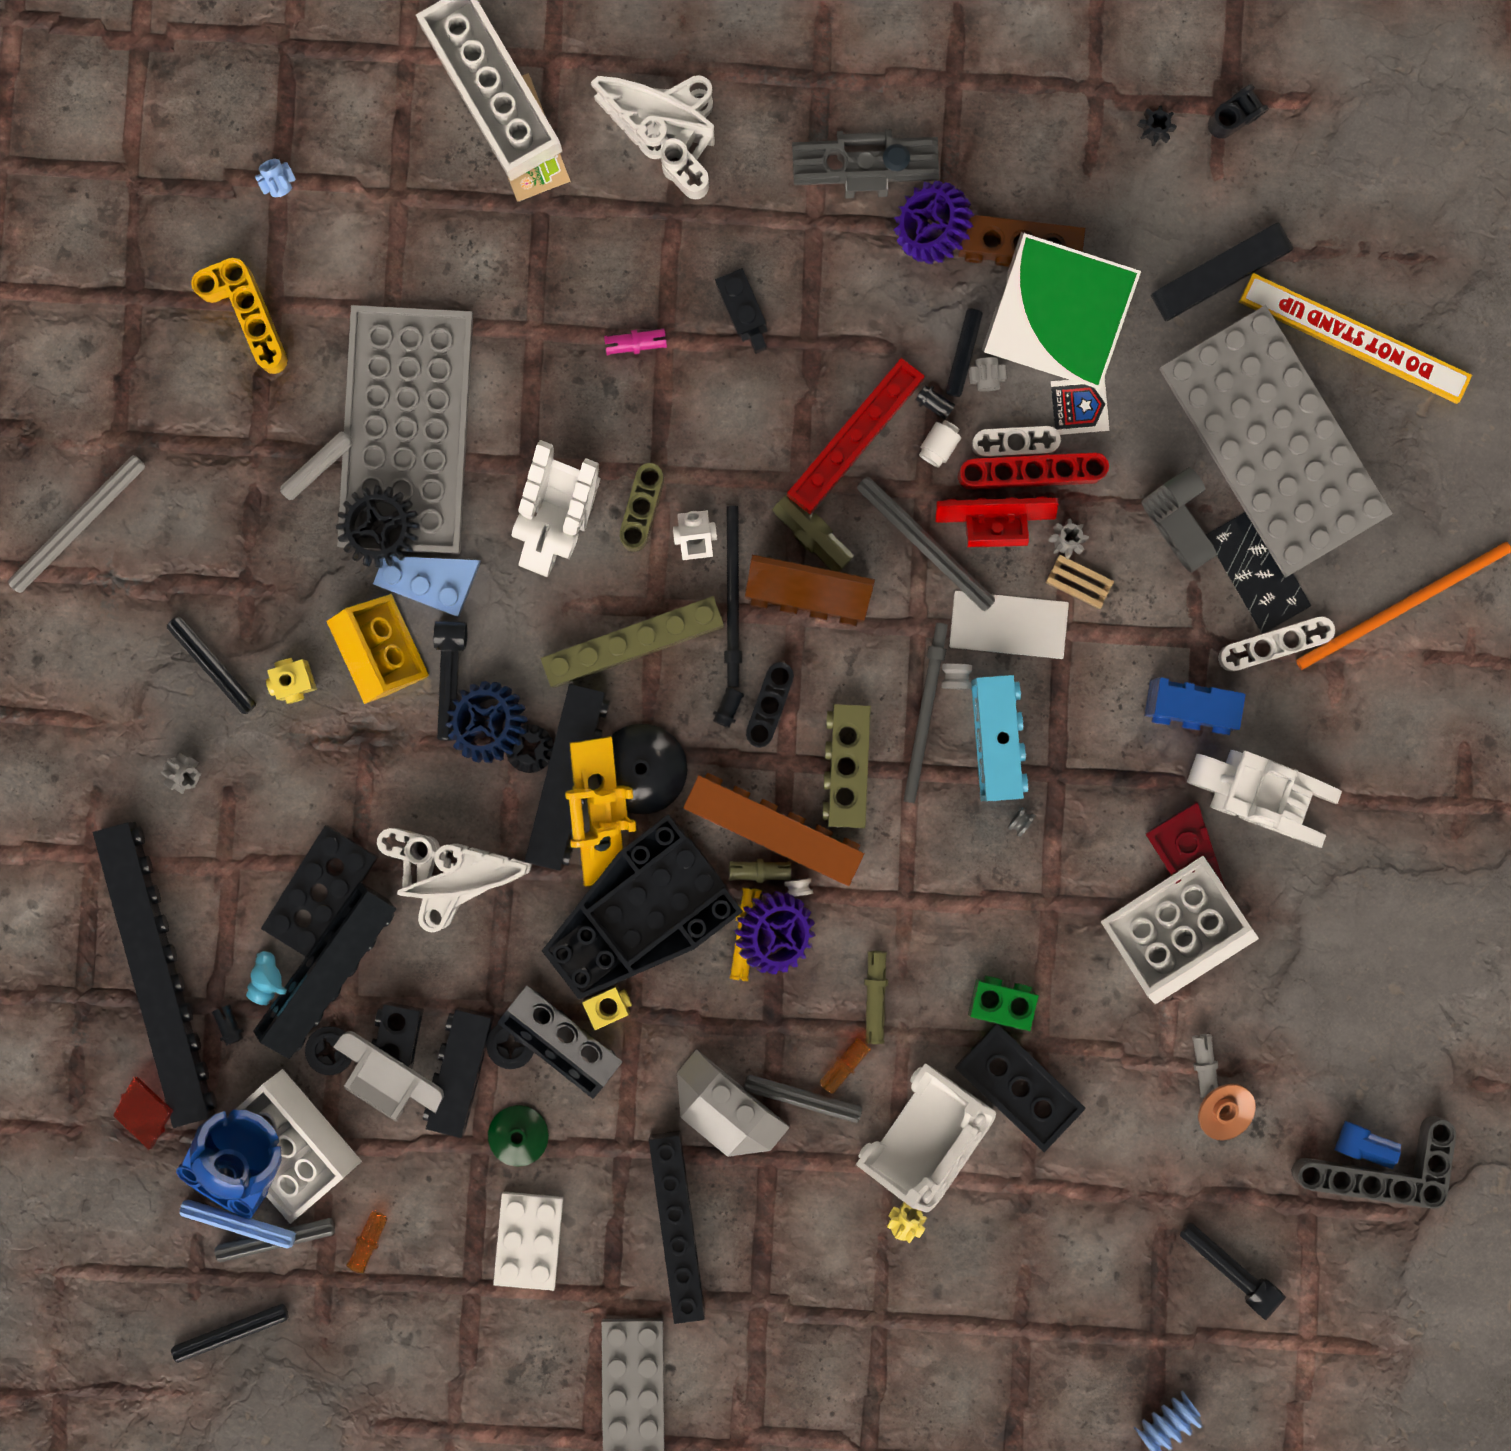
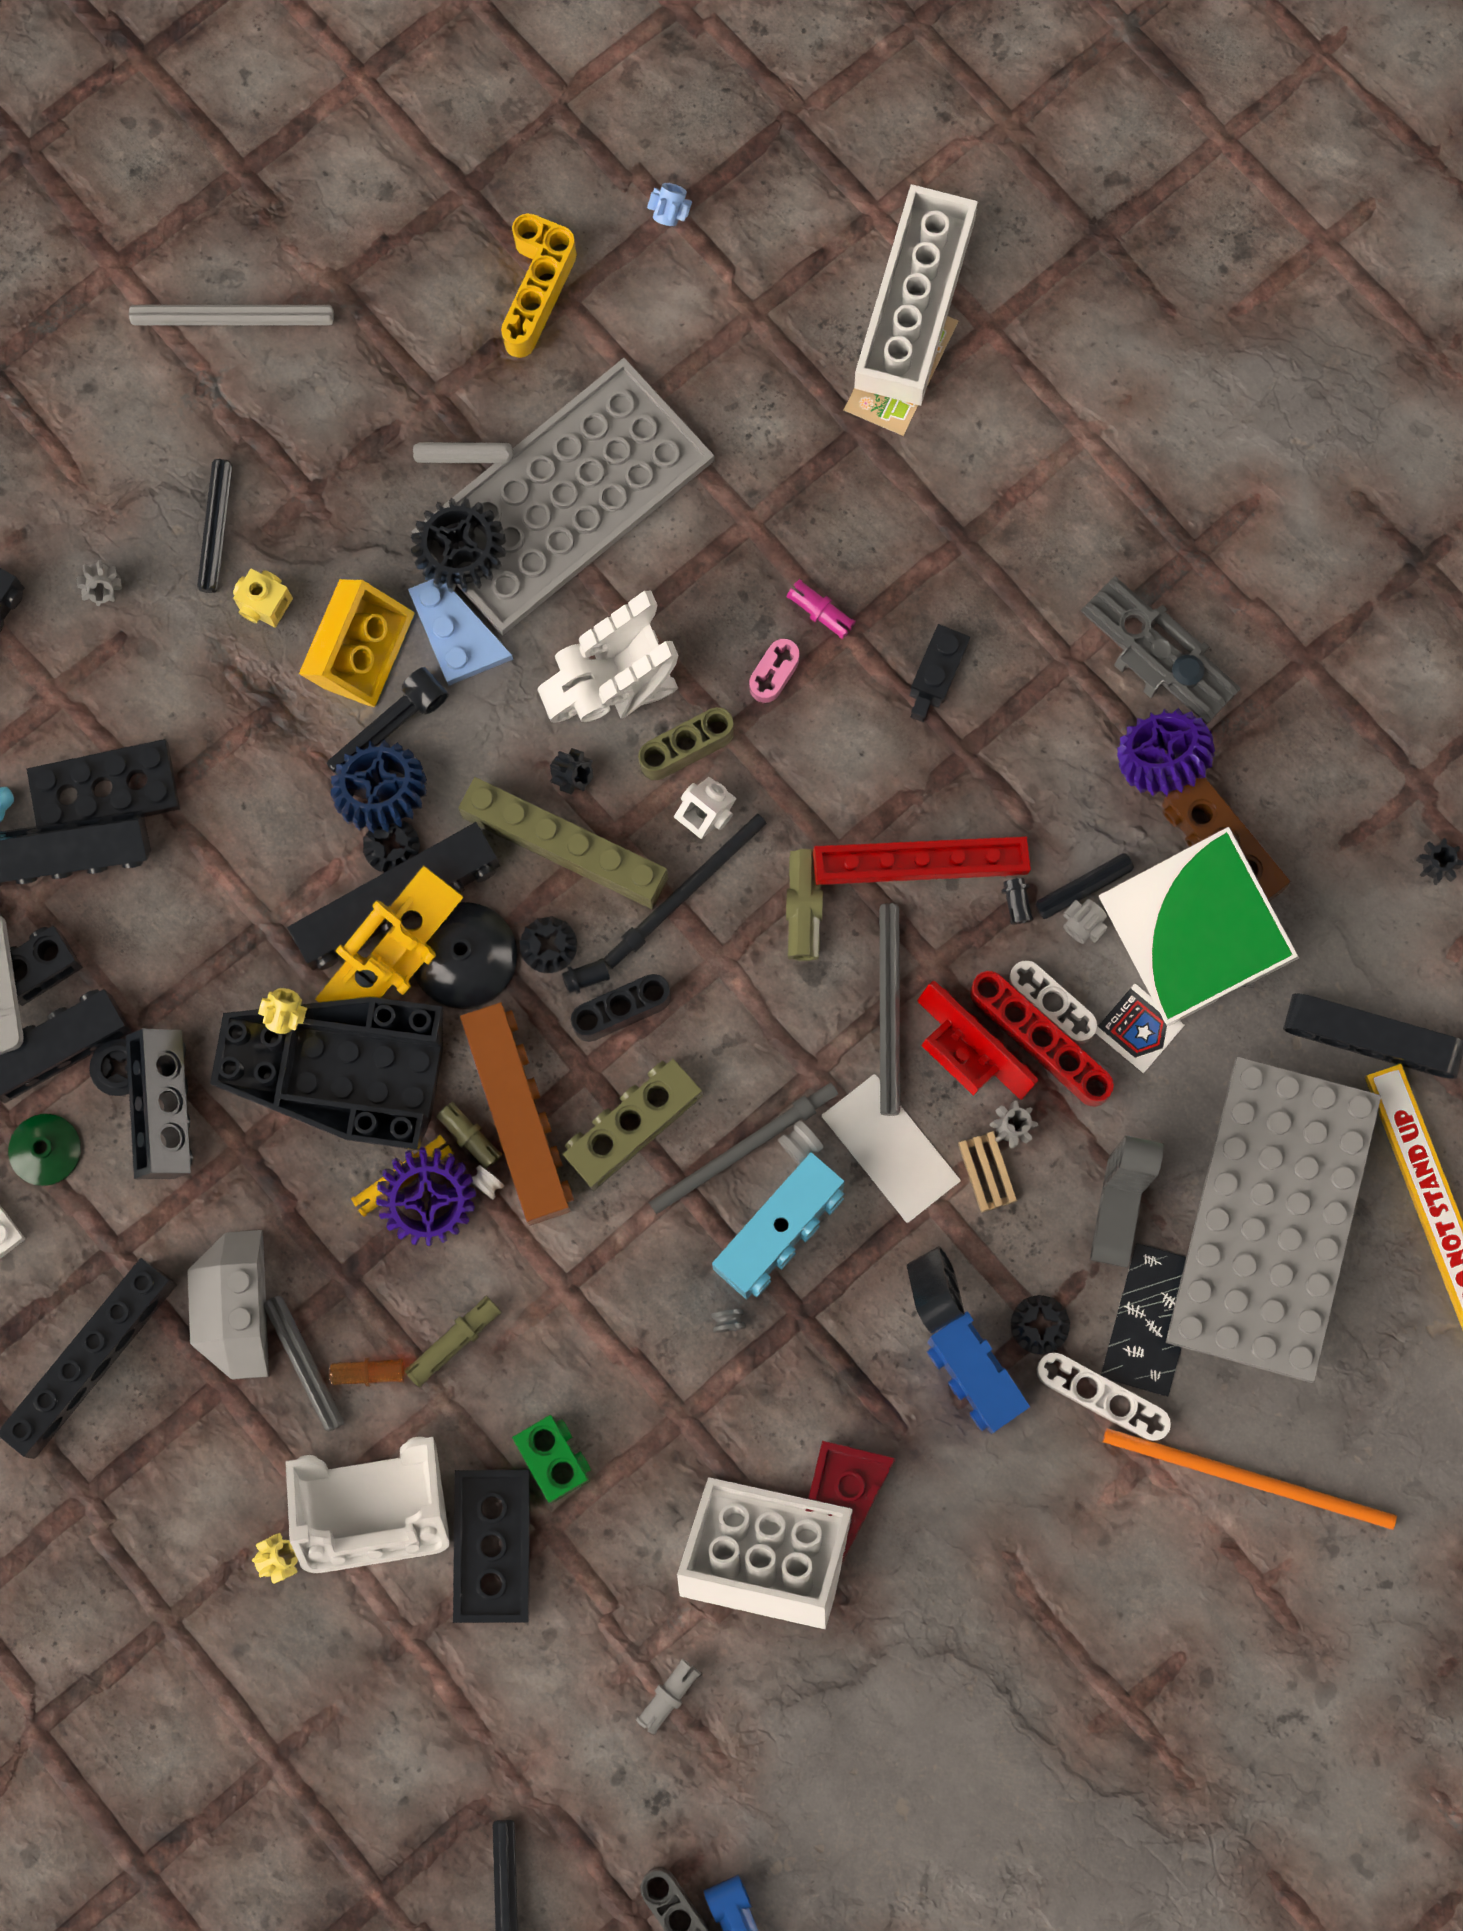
camera: 55 degrees right, 10 degrees down
(469, 877) = (225, 890): white piece -> none
(579, 914) = (282, 1011): none -> light yellow gear
(591, 594) = (571, 771): none -> black gear
(597, 1016) = (214, 1108): light yellow brick -> none
(653, 406) = (781, 674): none -> bright pink beam
(664, 114) = (1025, 460): white piece -> none
(697, 720) = (551, 960): none -> black gear
(809, 590) = (749, 942): reddish brown slope -> none
(940, 443) = (986, 938): white brick -> none
(1126, 682) = (935, 1289): none -> black beam
(1184, 639) = (1028, 1337): none -> black gear
(1231, 1120) = (640, 1768): nougat dish -> none
(1262, 792) = (959, 1510): white piece -> none

